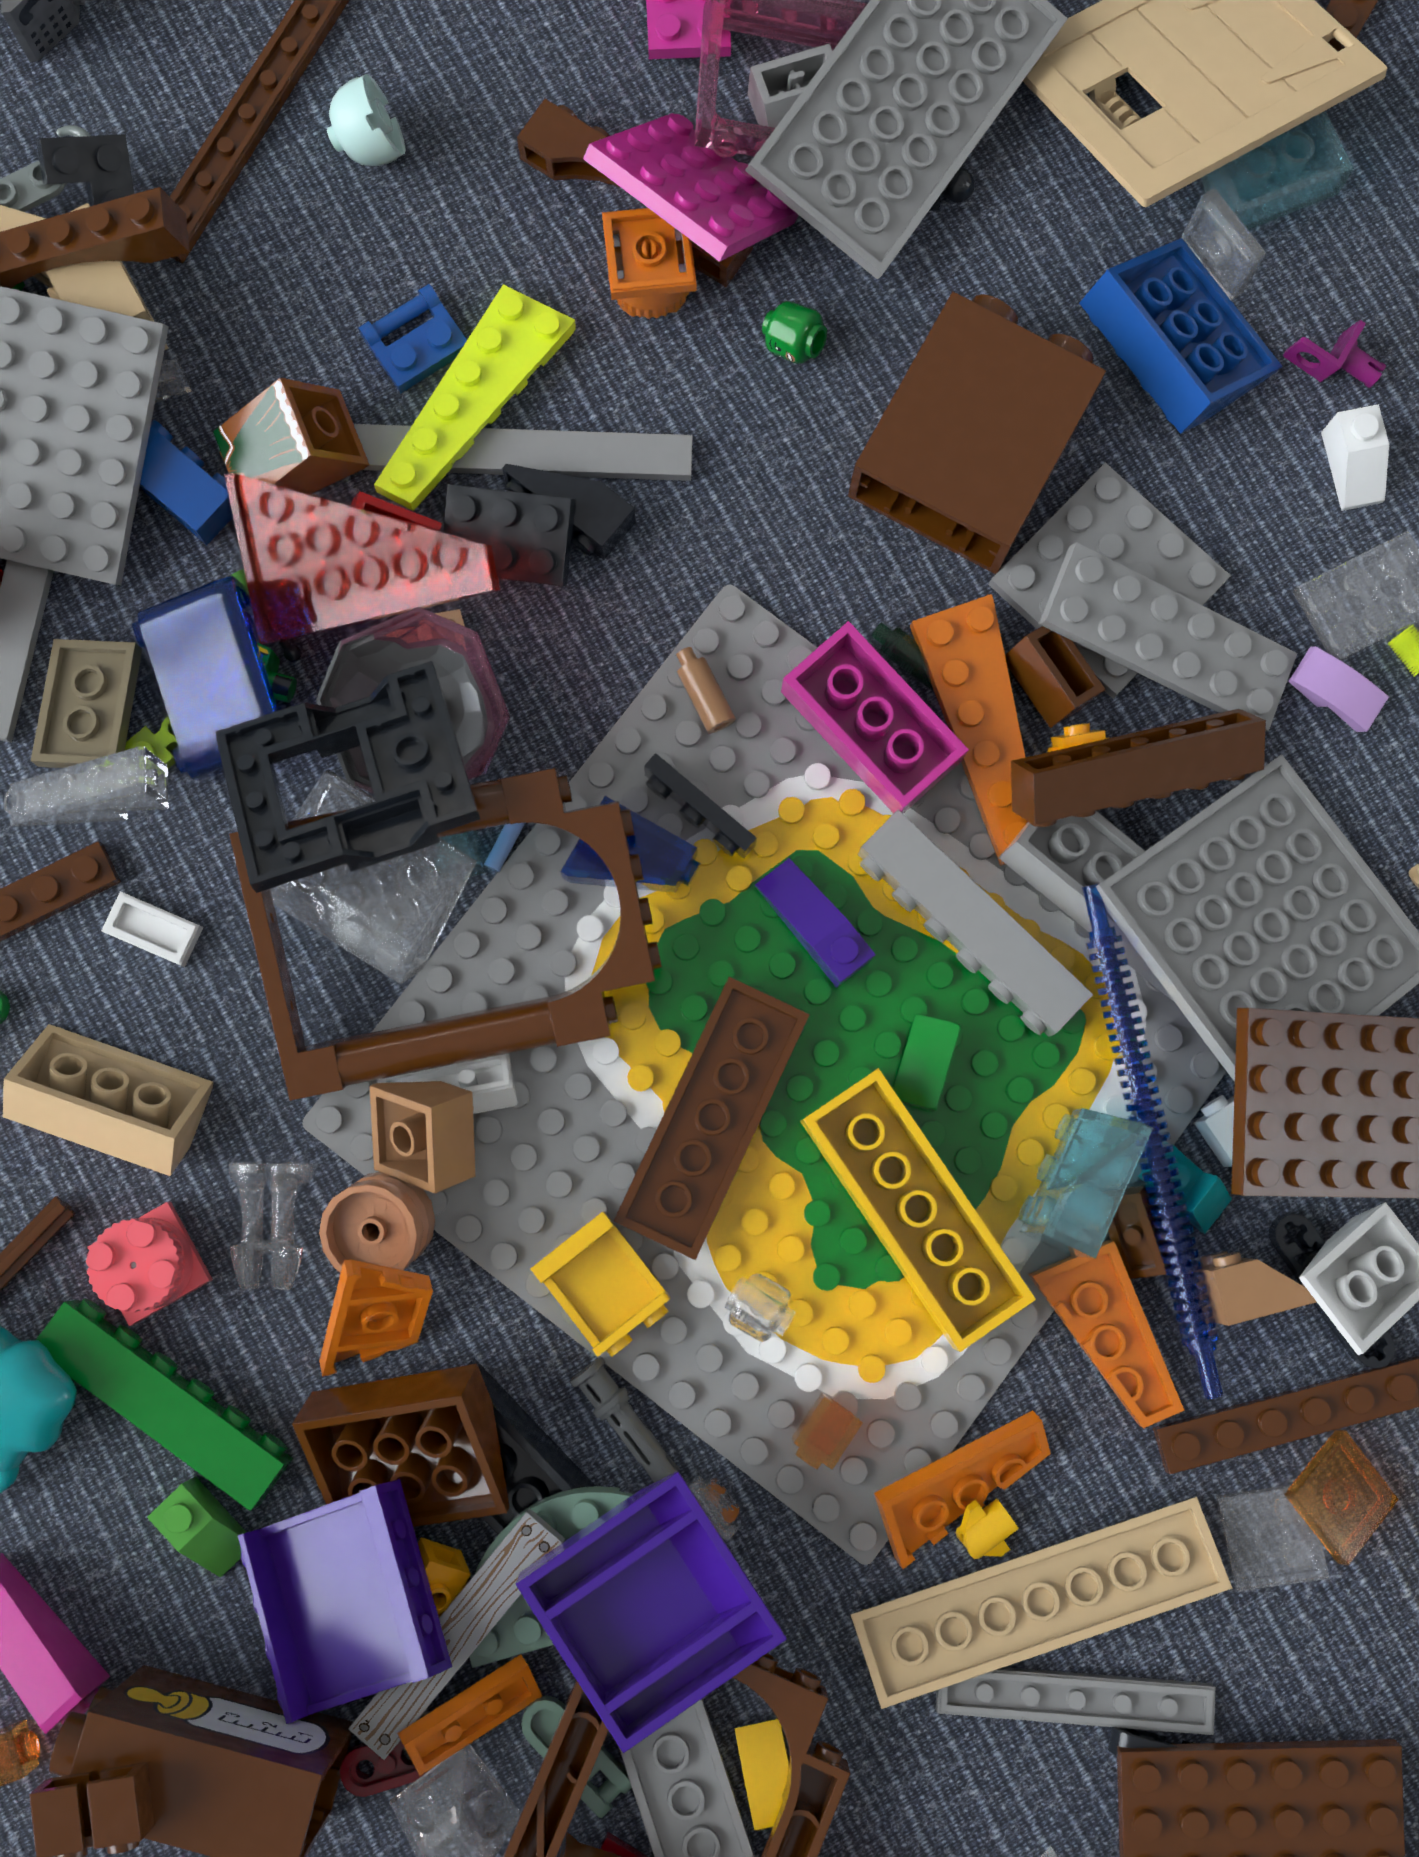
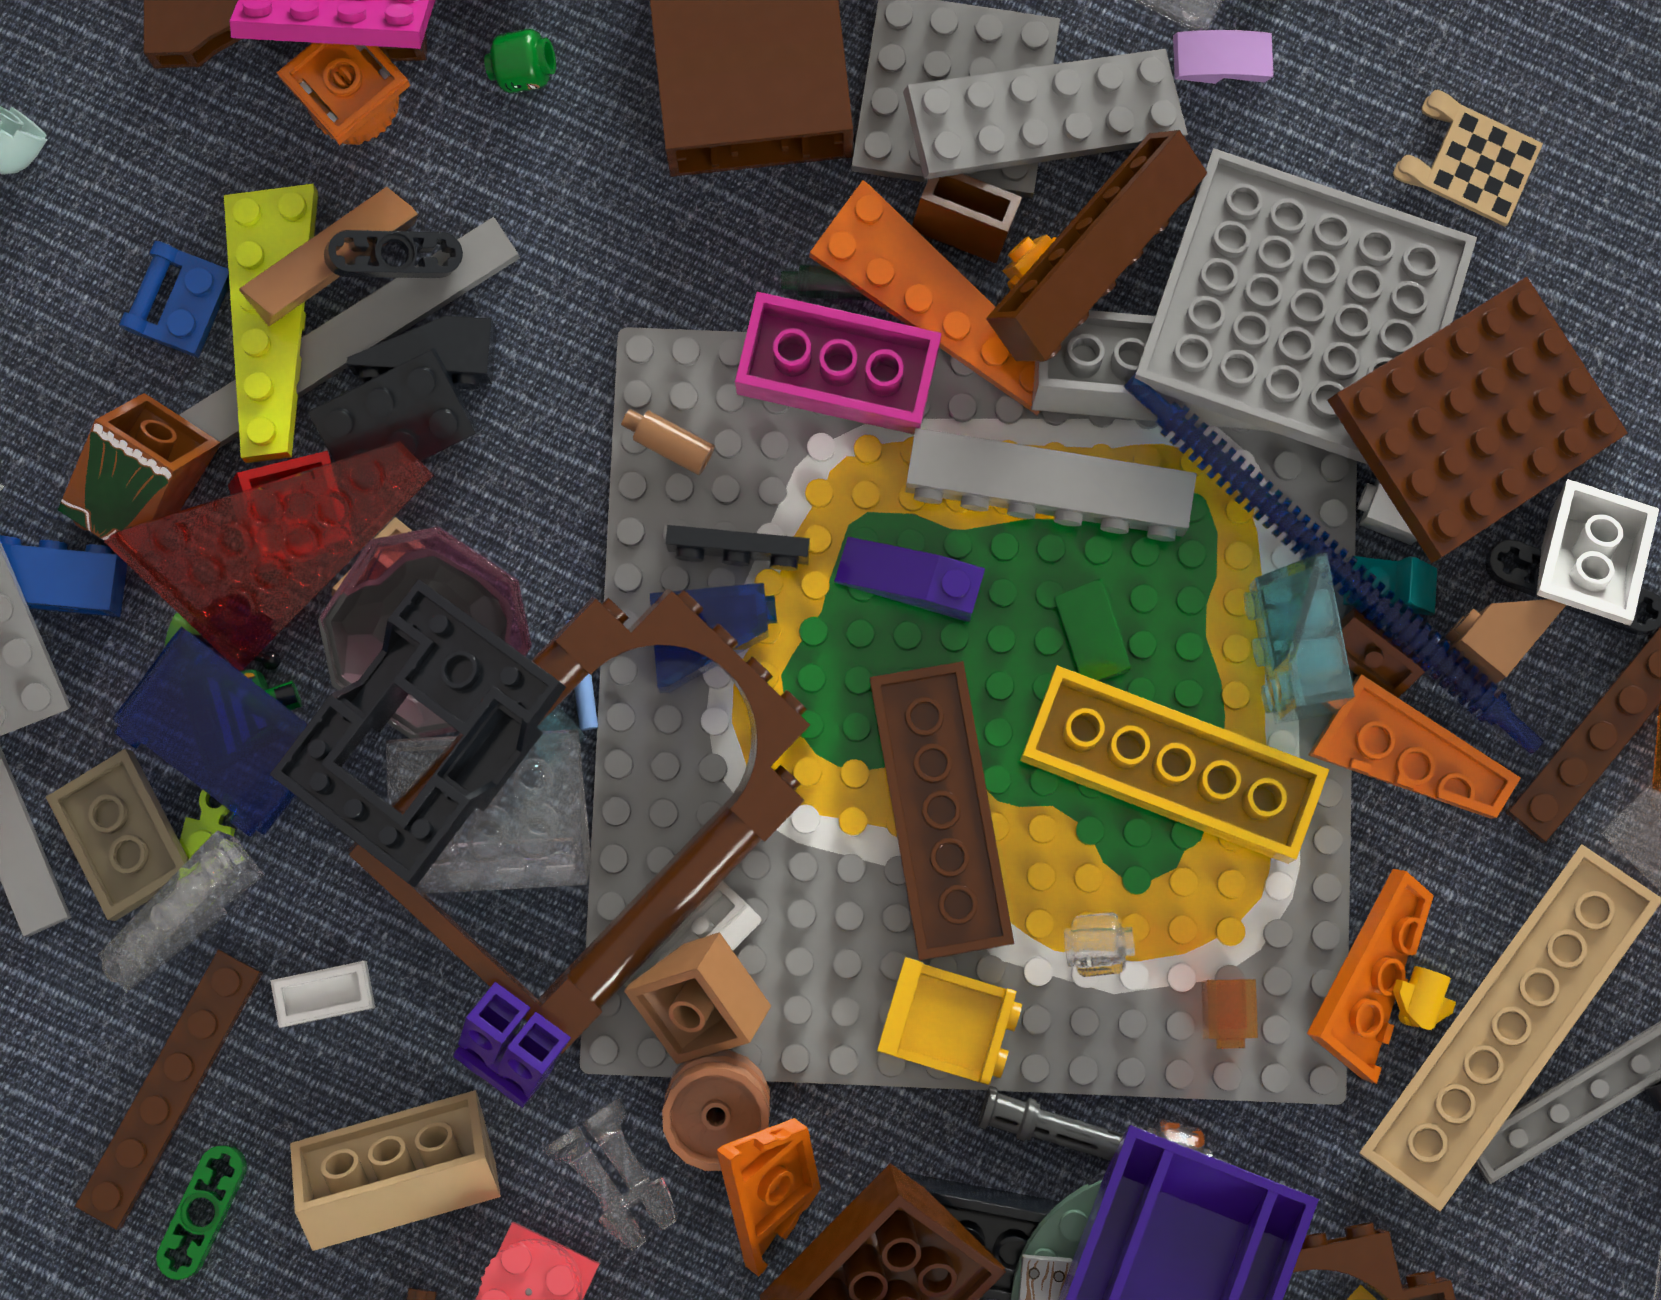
camera: 30 degrees left, 0 degrees up
(247, 1077) = (499, 1056): none -> dark purple hips
(547, 379) = (305, 270): none -> medium nougat slope
(615, 436) = (359, 266): none -> black beam

